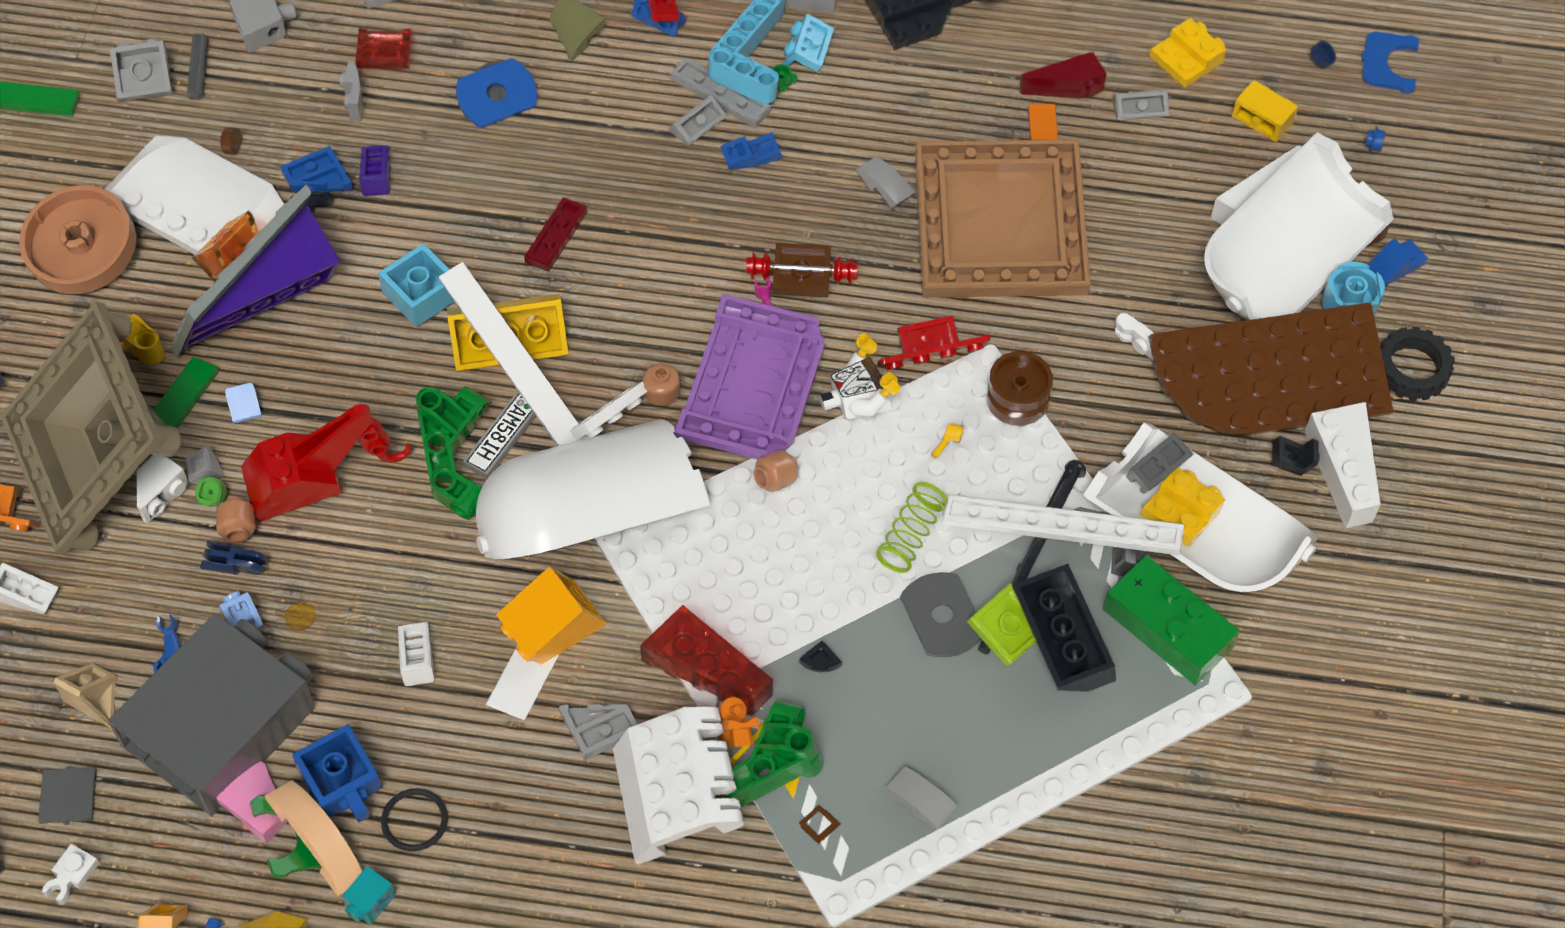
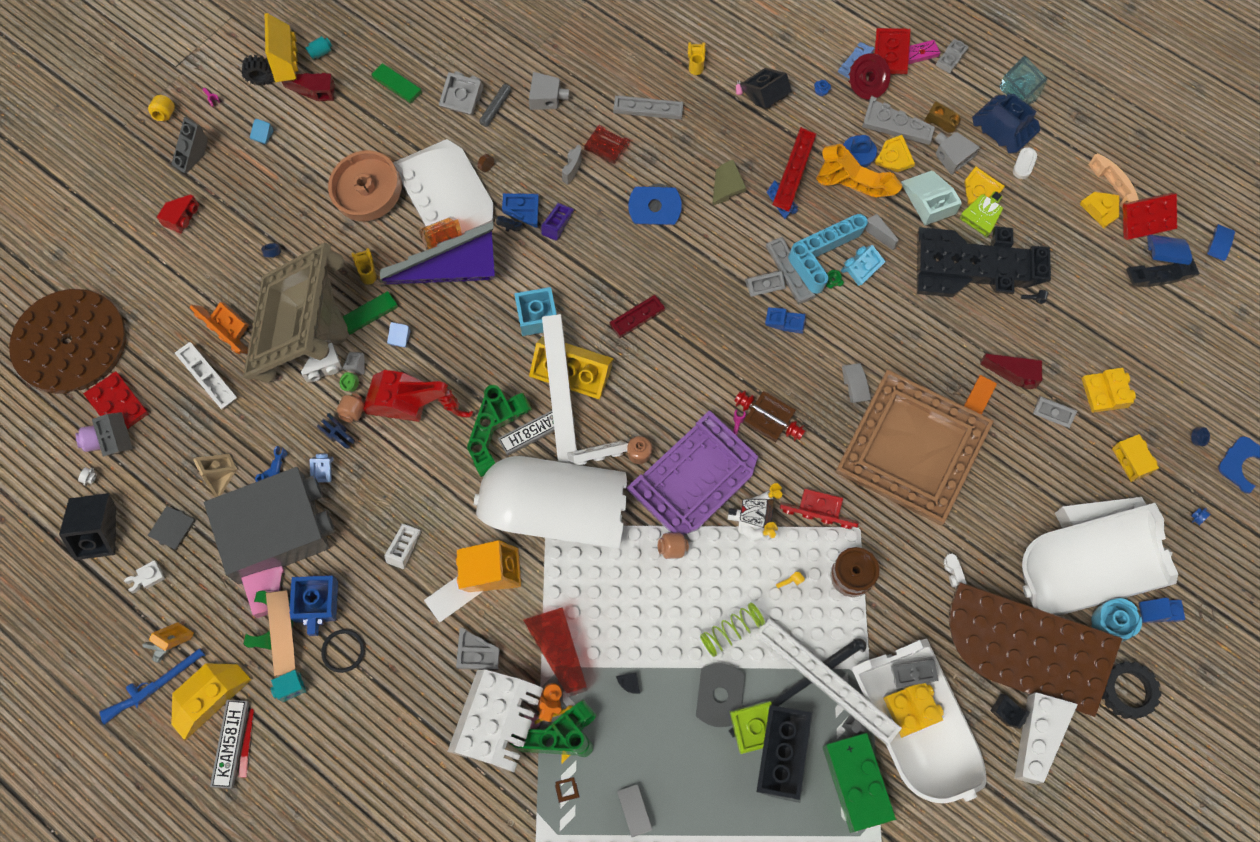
camera: 30 degrees right, 10 degrees up
(300, 616) = (354, 486): clear yellow piece -> none

